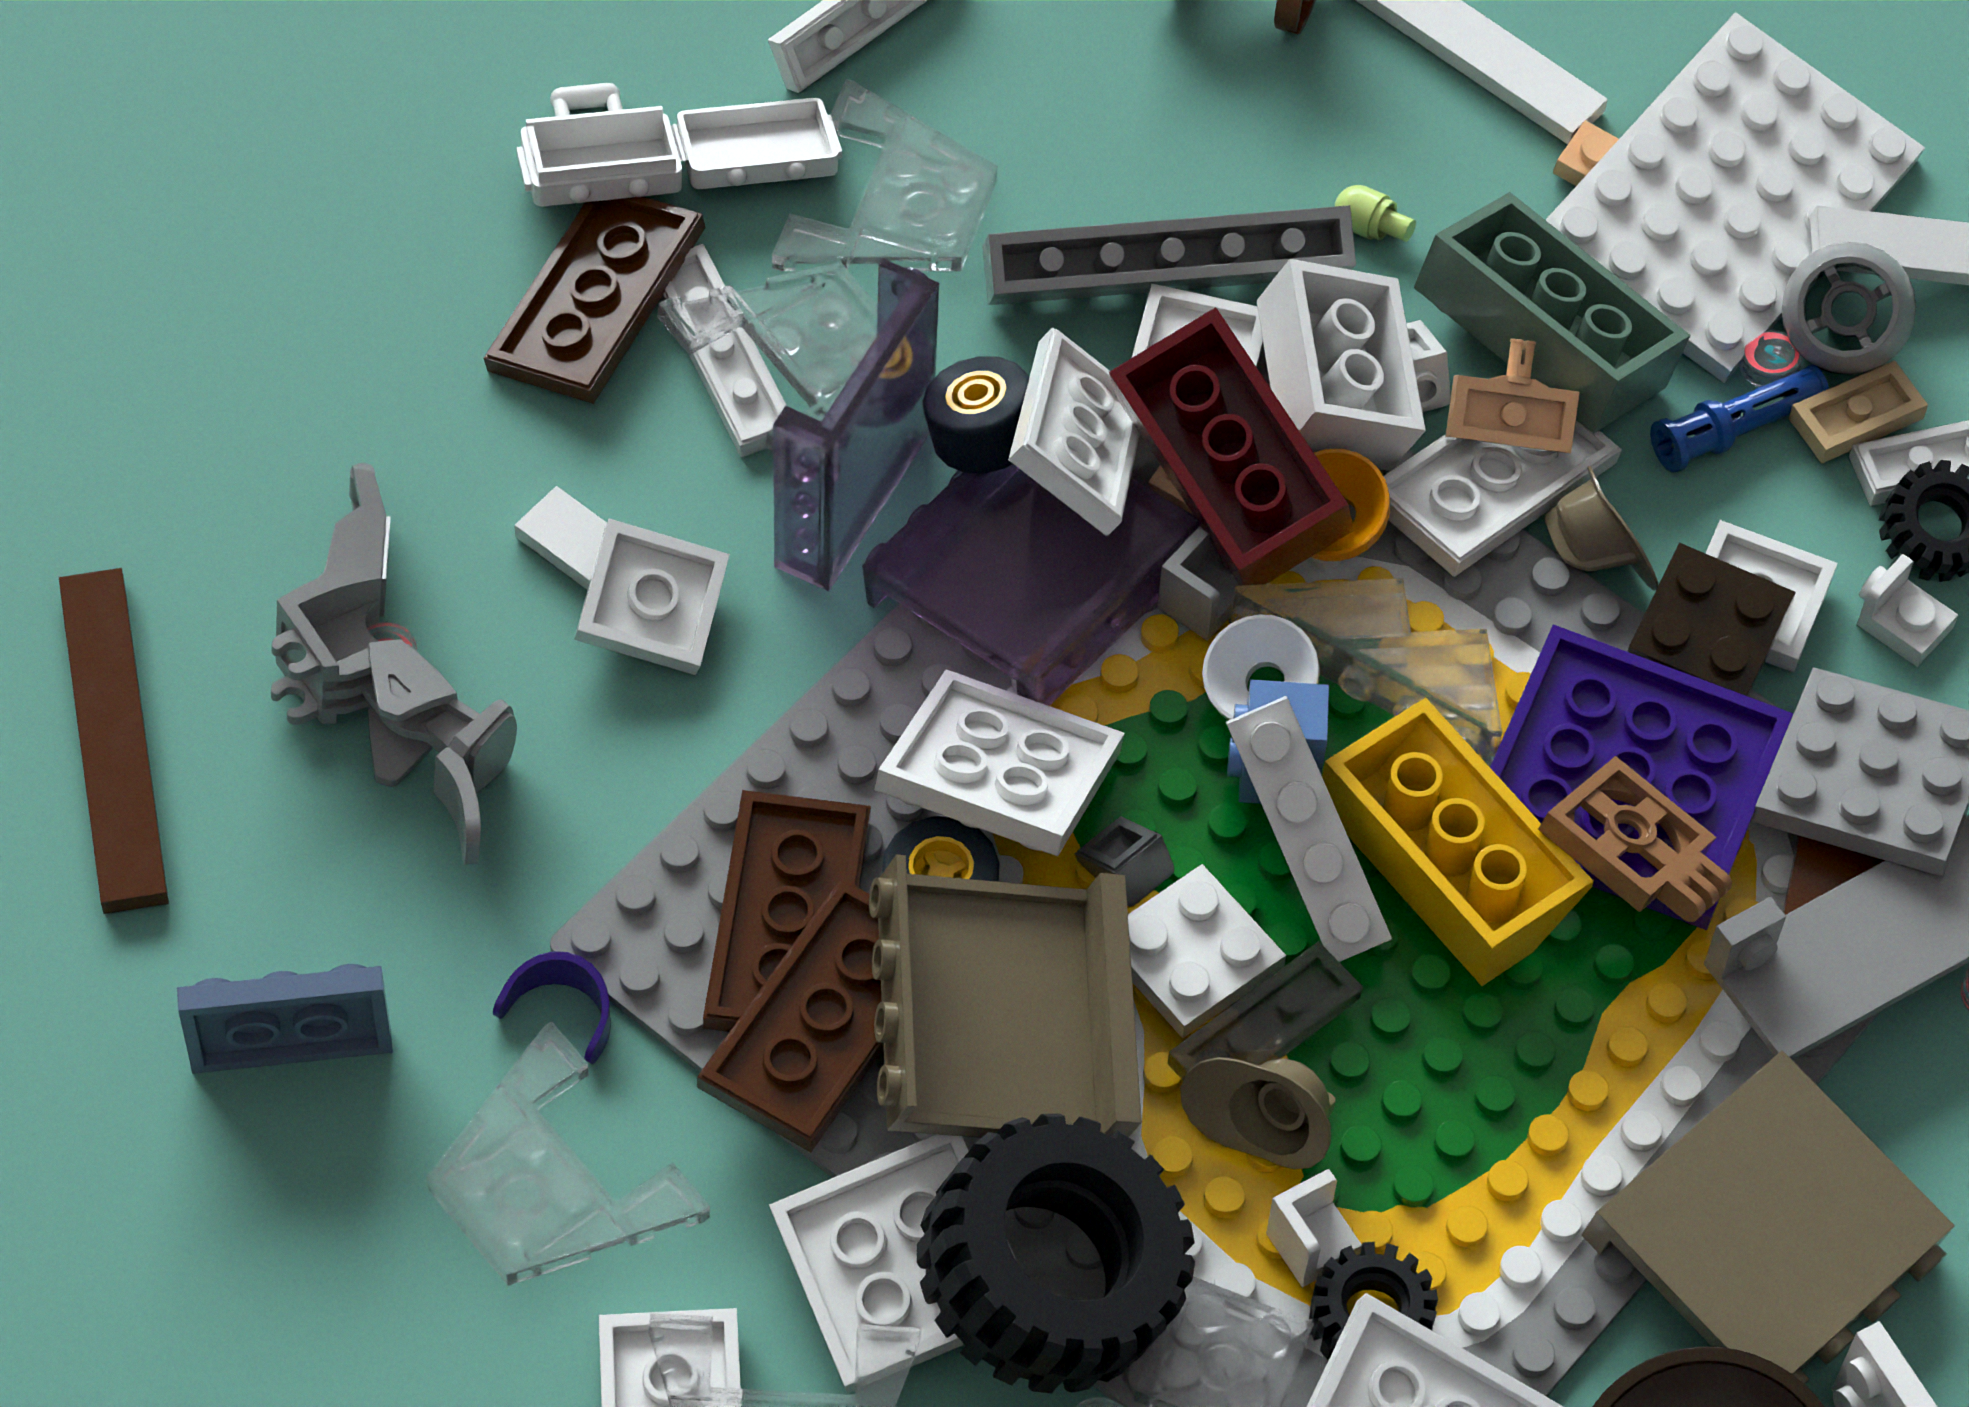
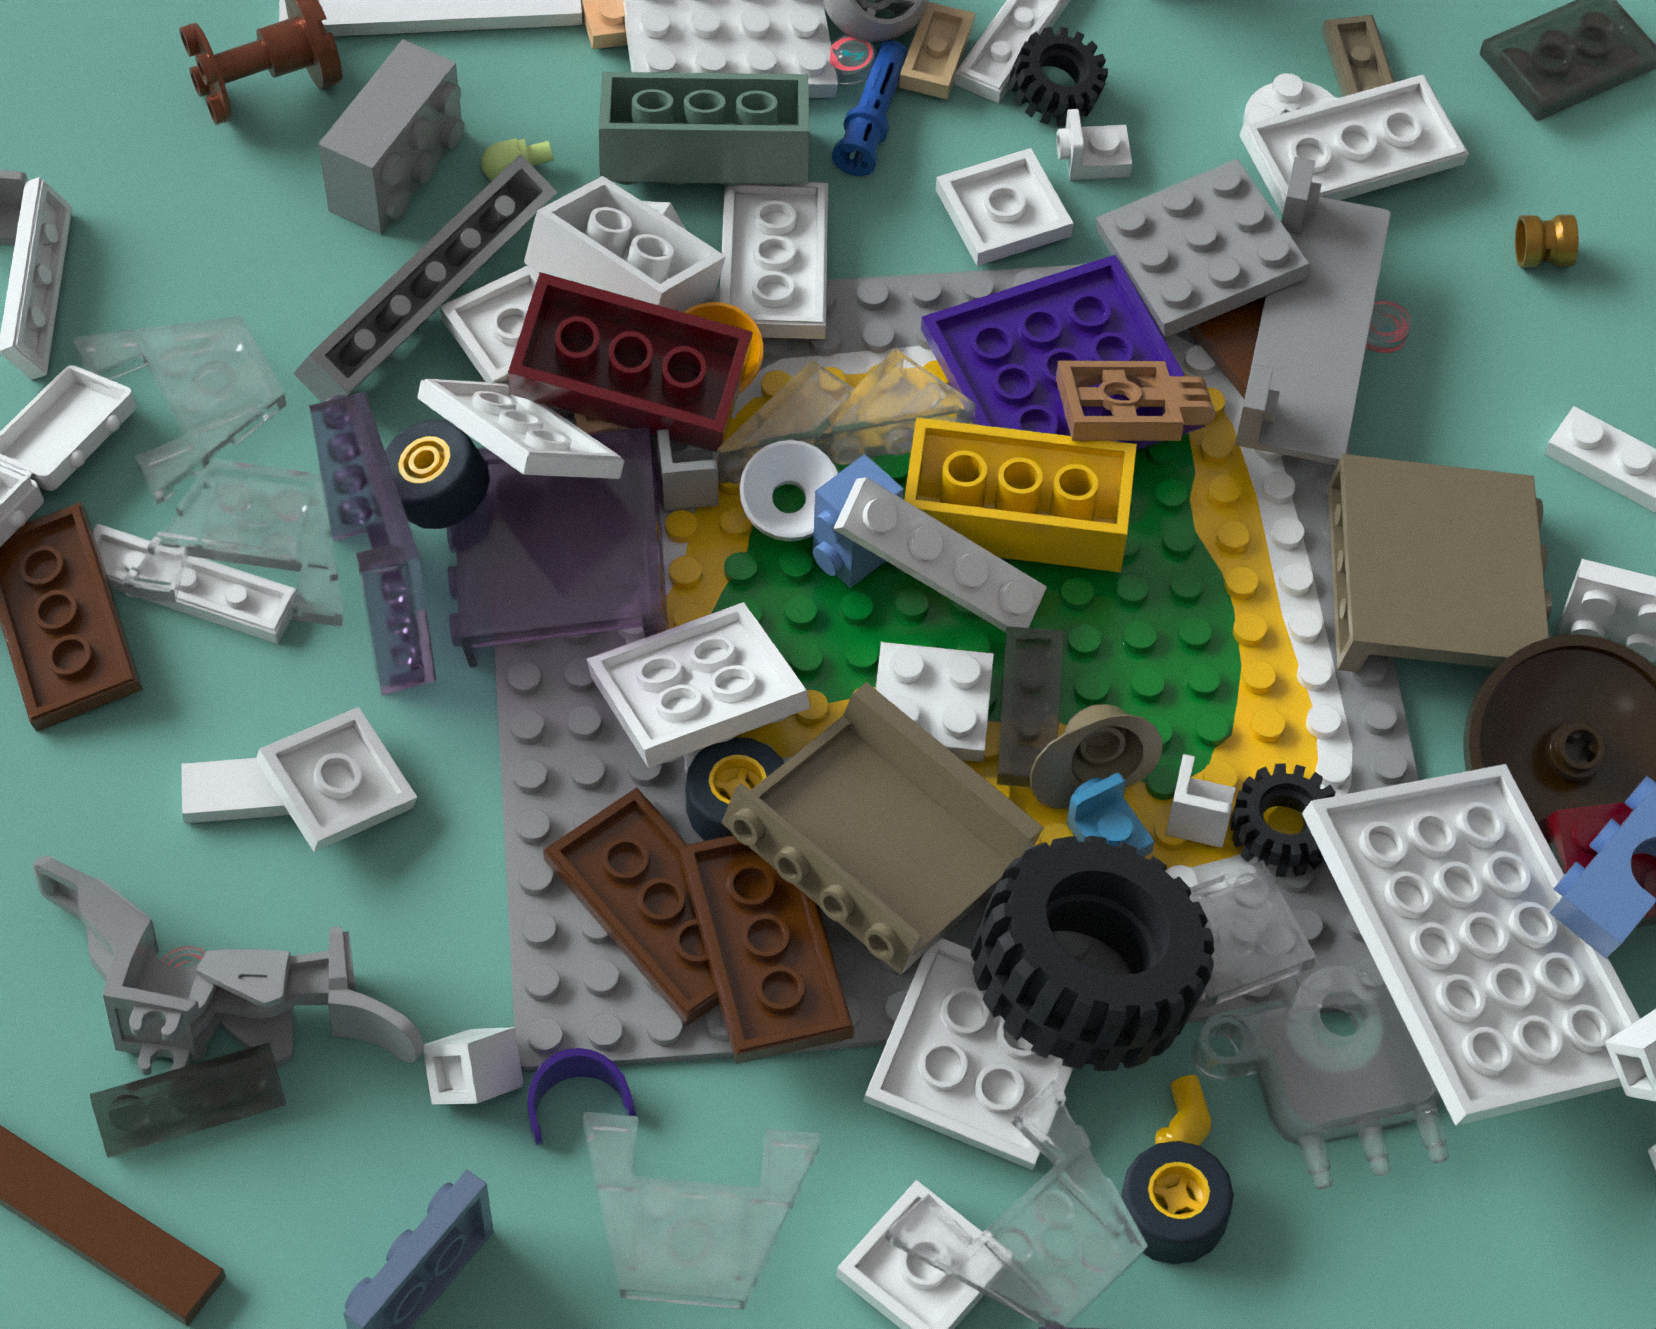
camera: 45 degrees left, 0 degrees up
(278, 744) = (188, 1099): none -> clear smoke plate
(509, 909) = (473, 1066): none -> white panel
(1128, 851) = (829, 677): dark grey slope -> none
(1219, 1176) = (1102, 811): none -> dark azure bracket
(1273, 110) = (392, 137): none -> light grey brick
(1513, 407) = (752, 202): light nougat plate -> none
(1594, 535) = (881, 241): dark tan piece -> none
(1712, 620) = (1004, 238): dark brown plate -> none

